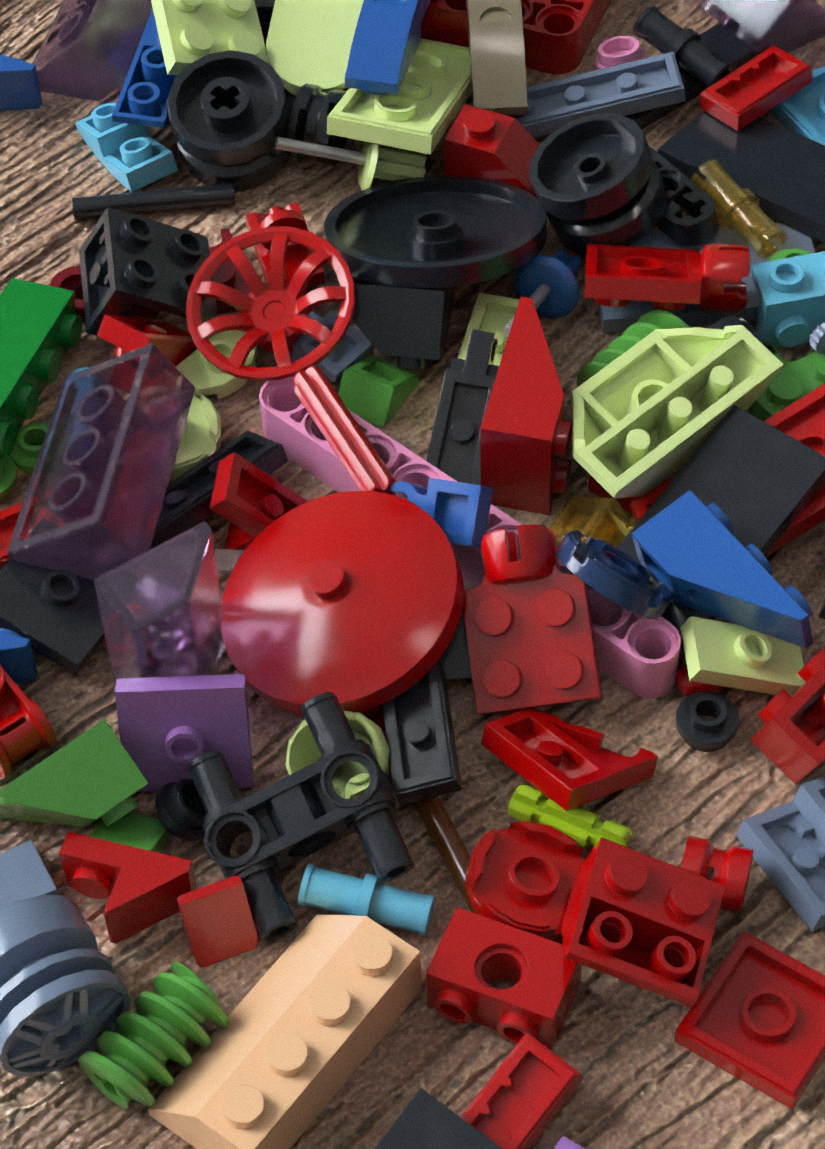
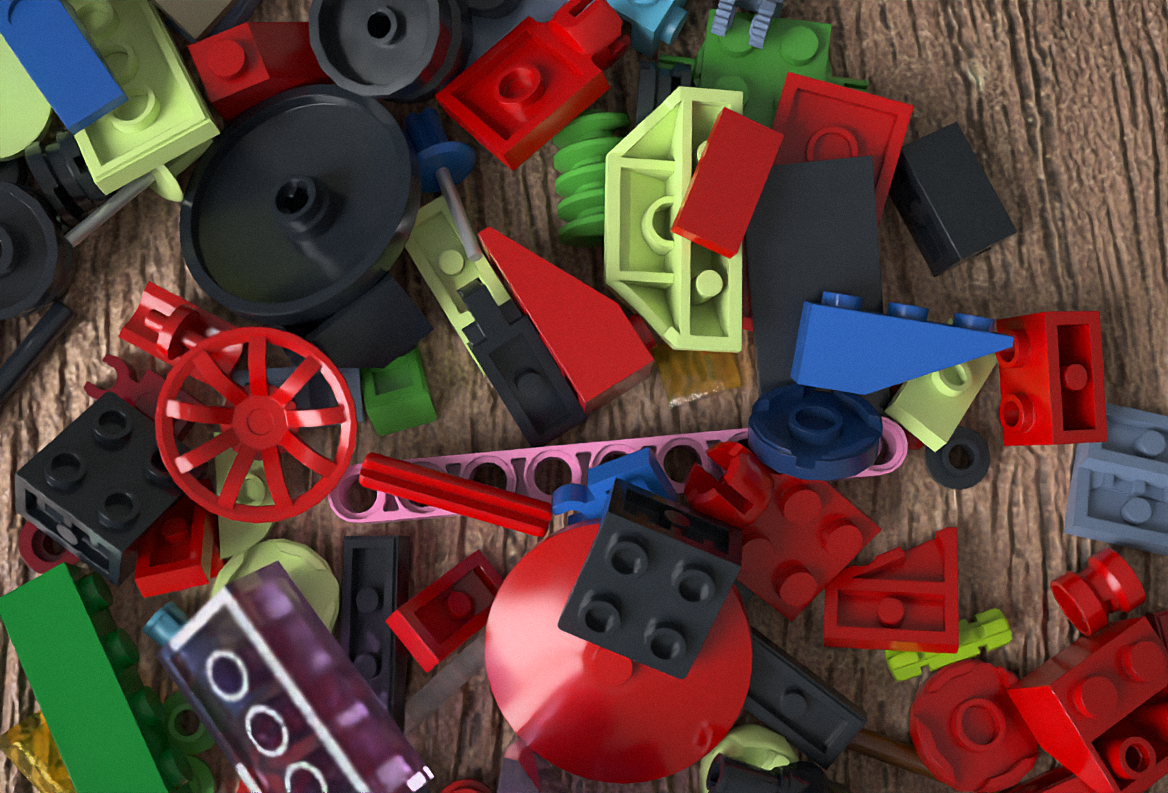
camera: 45 degrees left, 30 degrees up
(404, 534) = (652, 579): none -> black bracket
(711, 392) = (727, 183): none -> red tile

